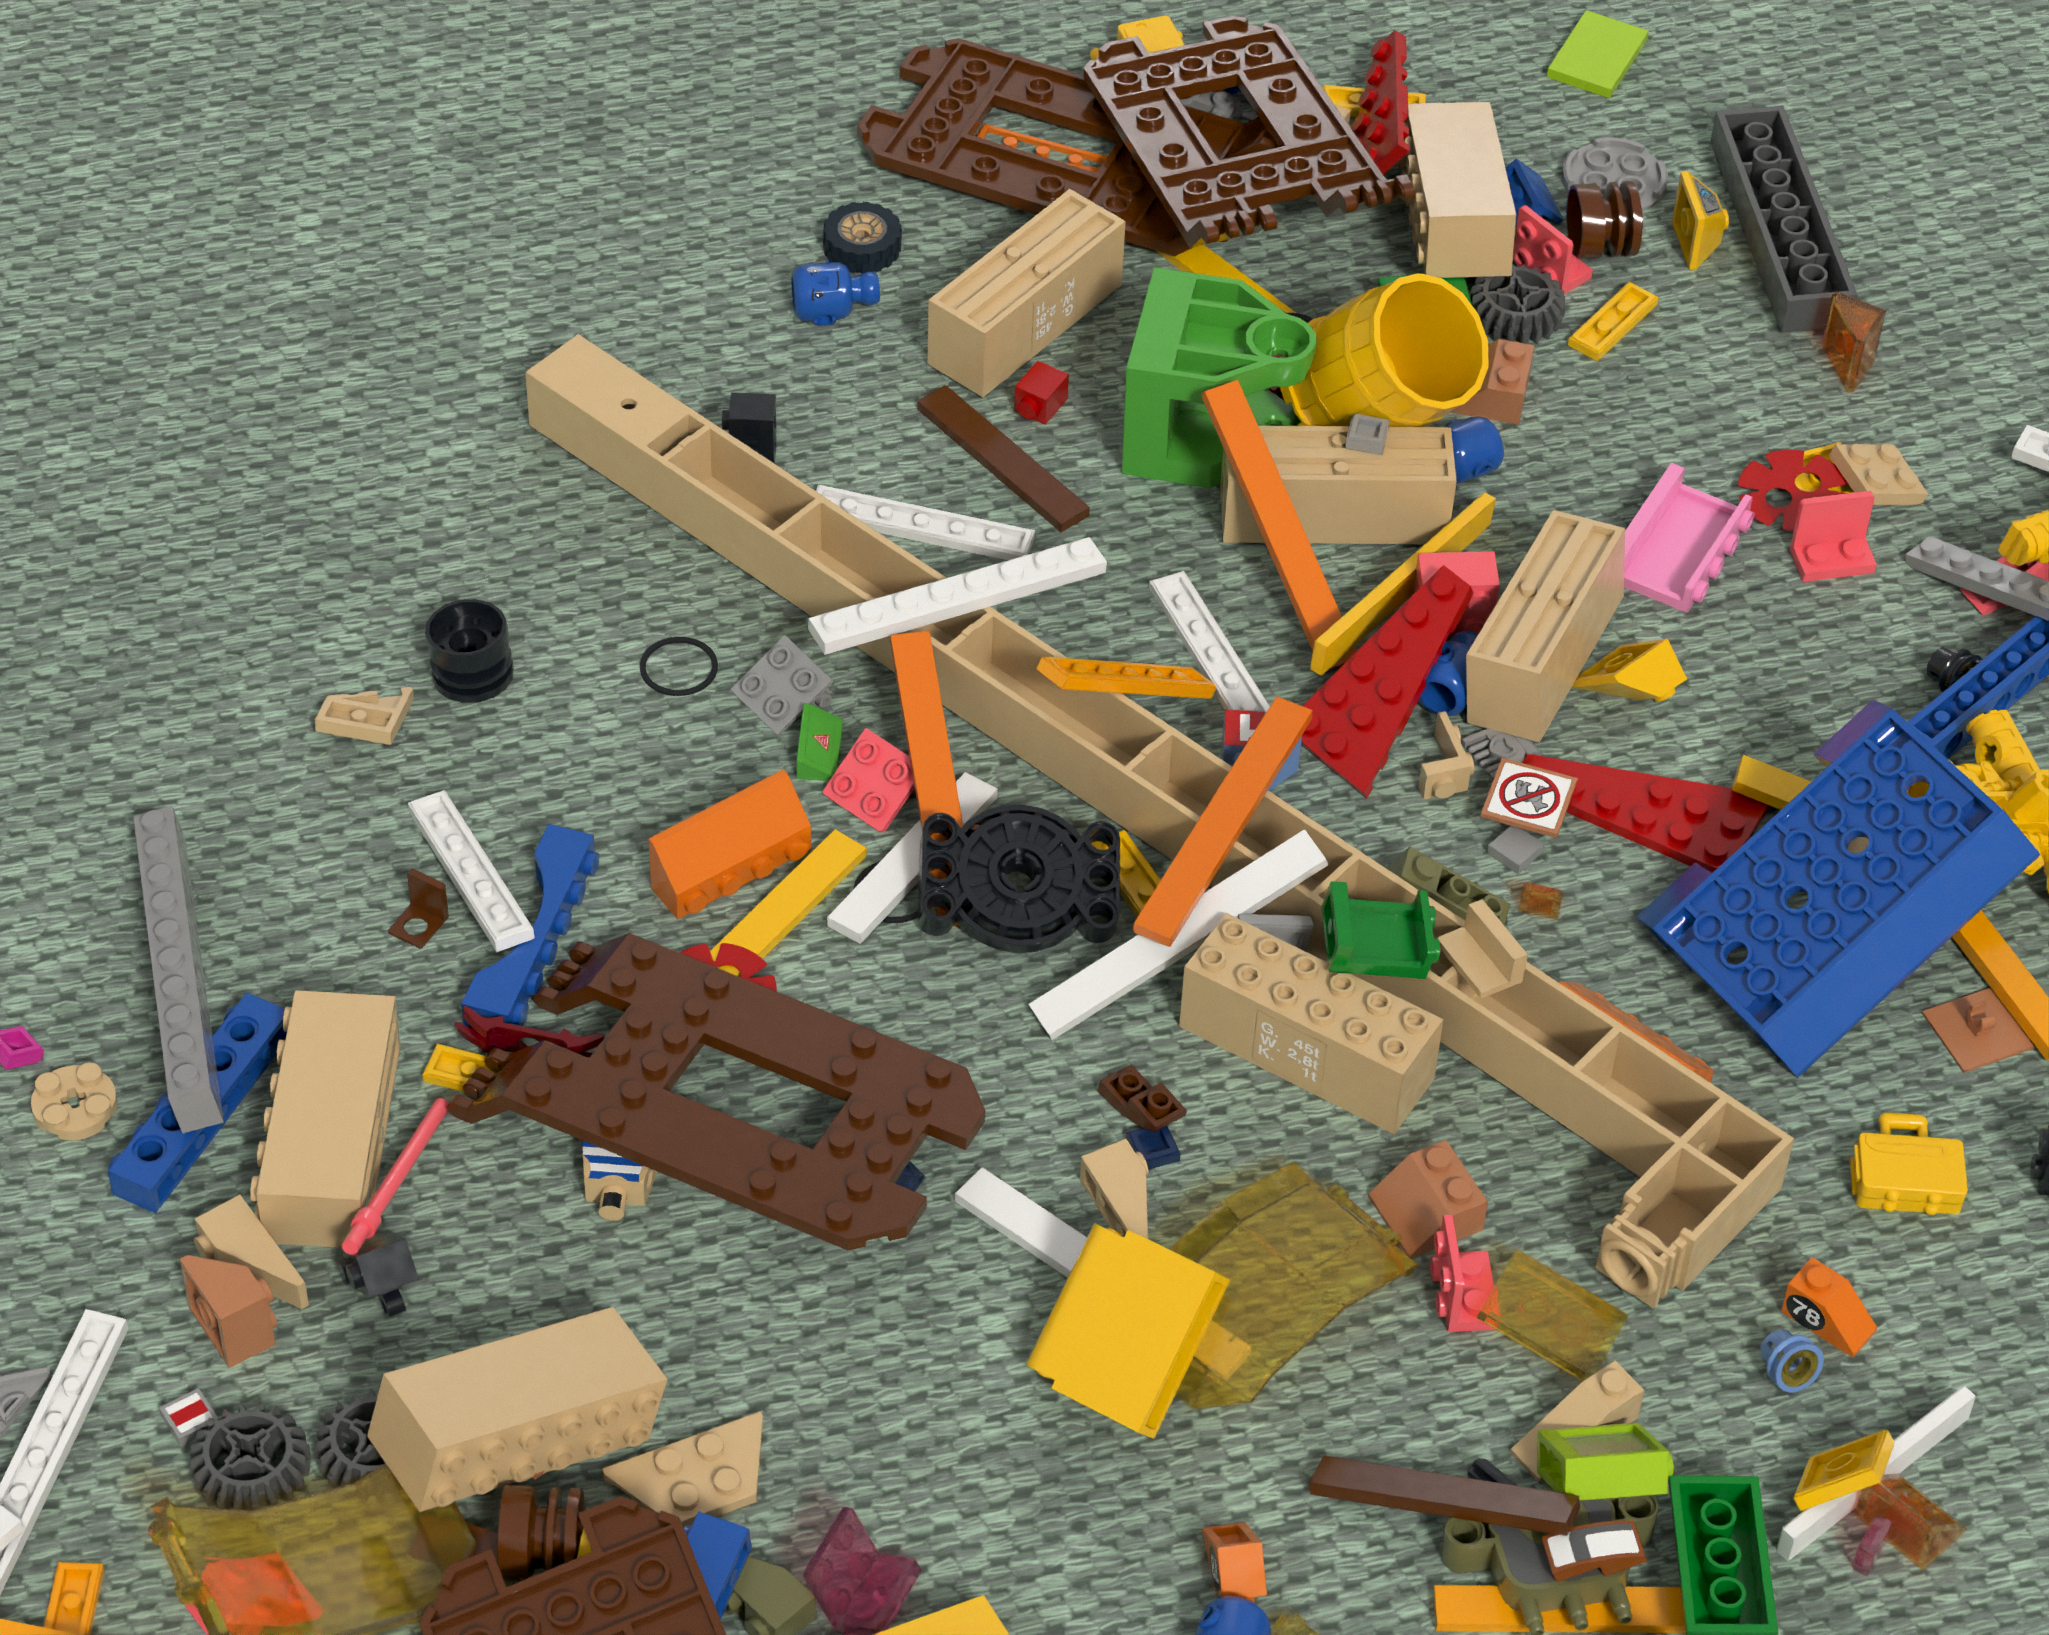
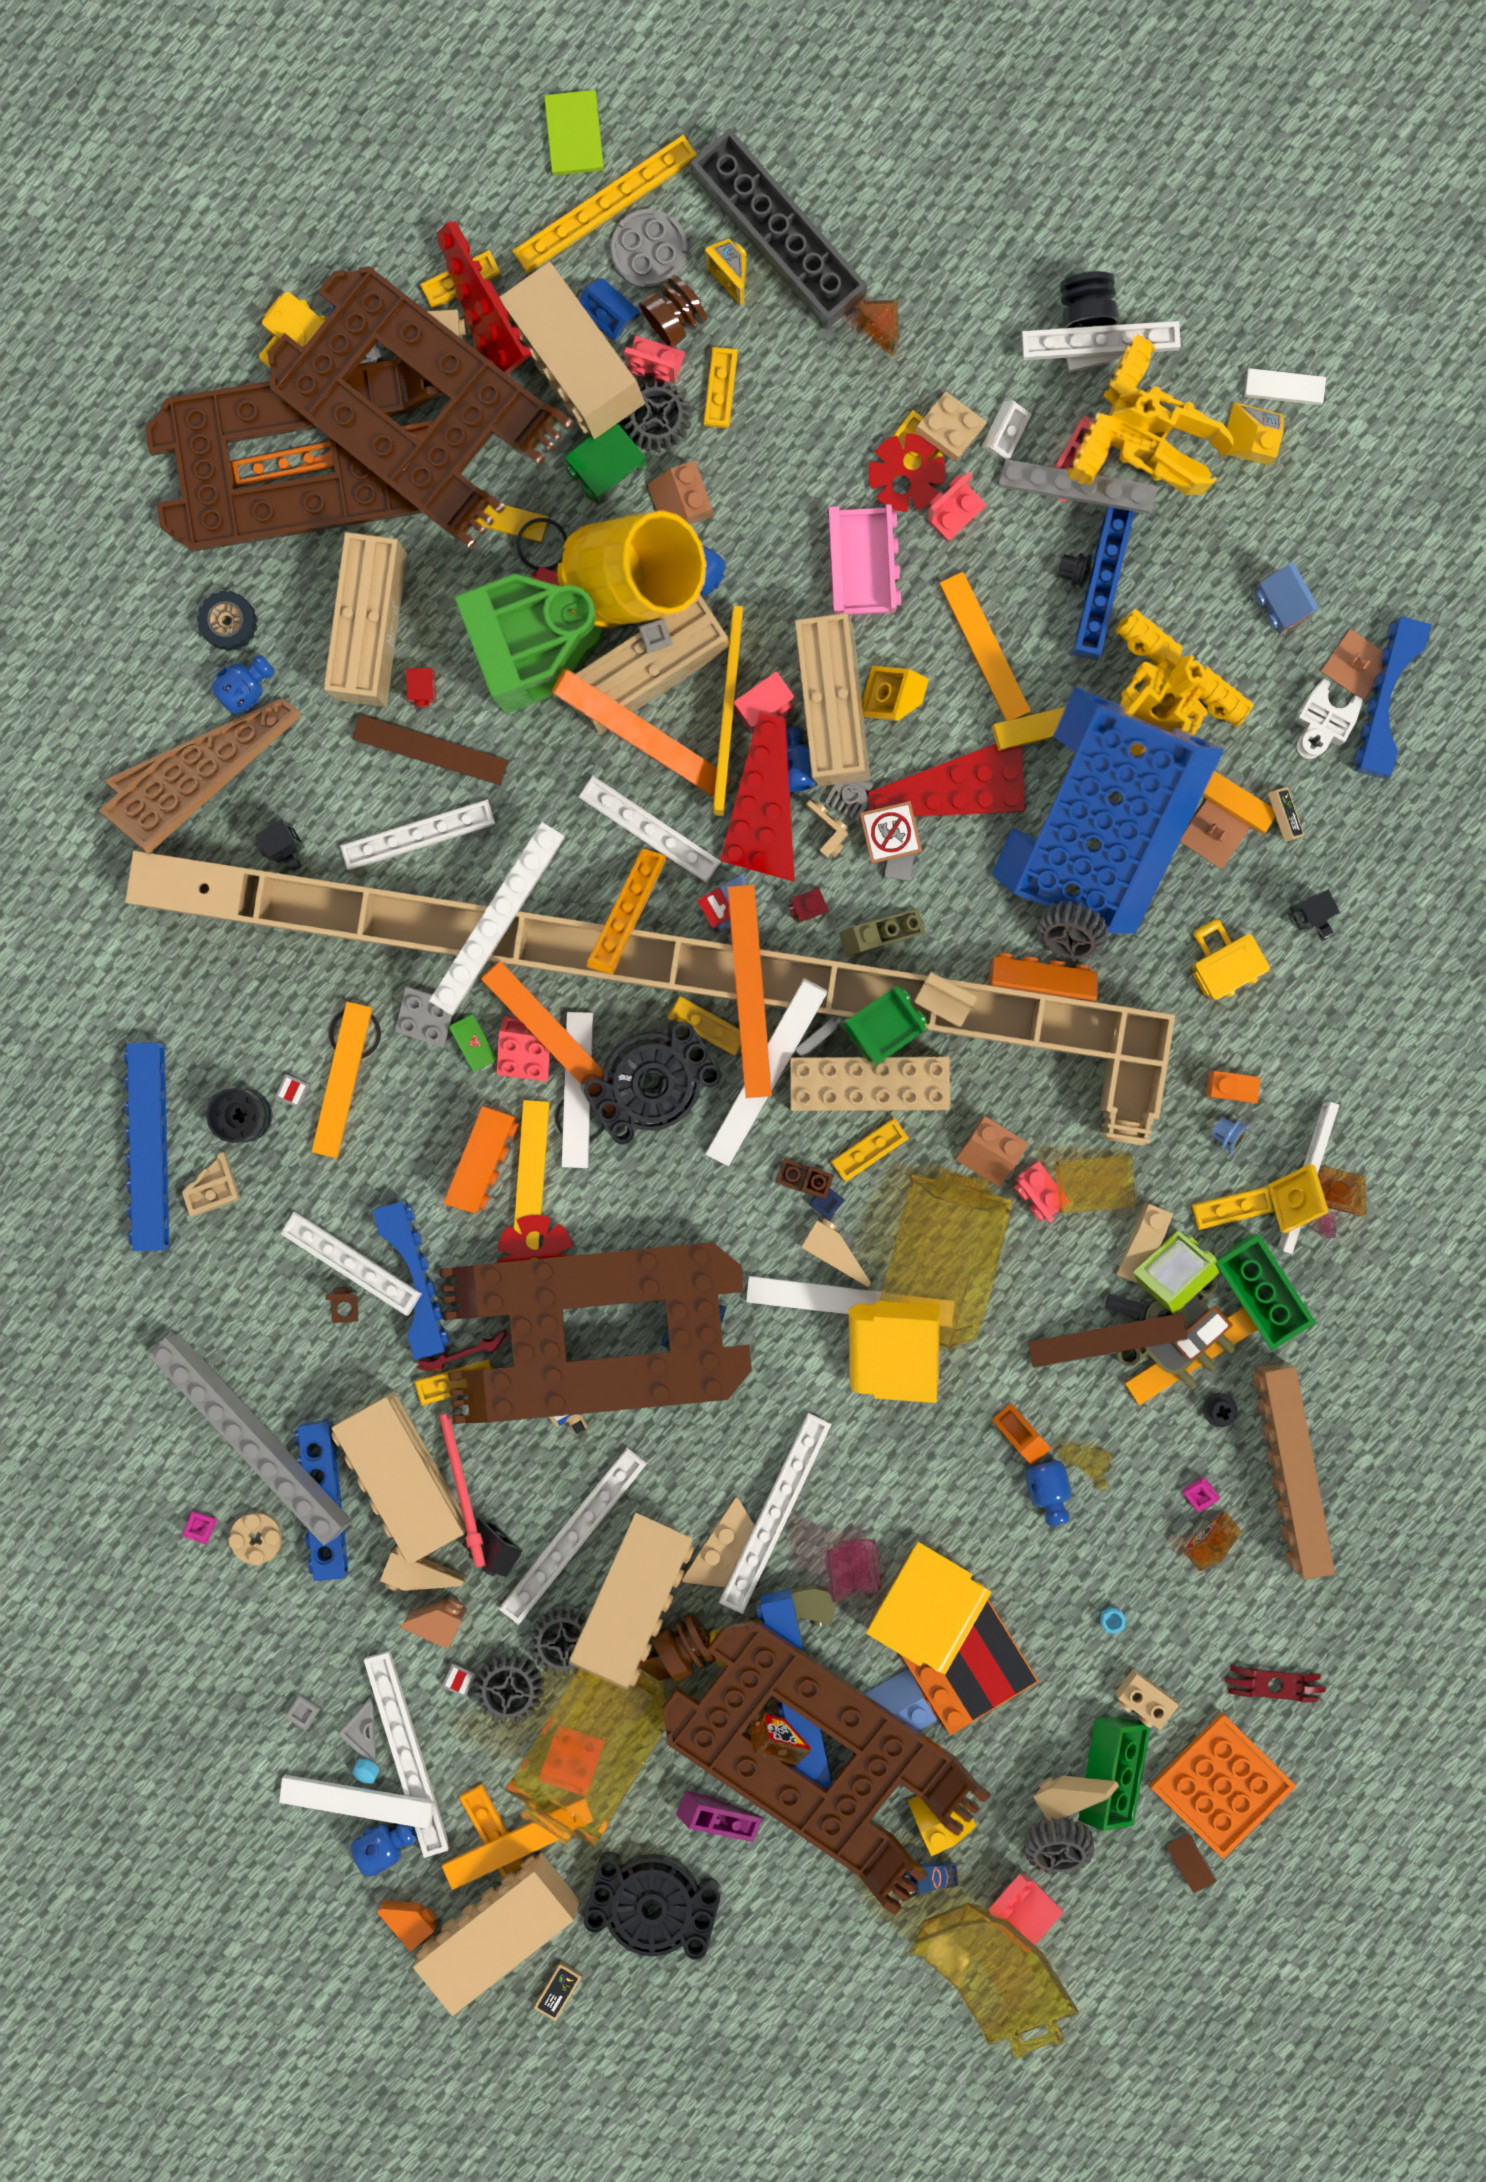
camera: 30 degrees left, 40 degrees up
(326, 635) = (147, 1146): none -> blue brick
(364, 1368) = (572, 1535): none -> white tile
(552, 677) = (292, 1090): none -> tile
(622, 697) = (342, 1079): none -> light orange tile
(677, 327) = (173, 785): none -> medium nougat wing
(810, 1450) = (775, 1513): none -> white tile
(1256, 1120) = (869, 1149): none -> yellow tile
(1363, 826) = (807, 905): none -> dark red bracket
(1541, 900) = (933, 893): clear orange slope -> none
(1605, 121) = (605, 204): none -> yellow tile
(1697, 1005) = (1072, 931): none -> dark grey gear
(1735, 1456) = (1232, 1208): none -> yellow tile
(1783, 689) = (984, 647): none -> light orange tile
(1951, 515) = (1006, 430): none -> white slope

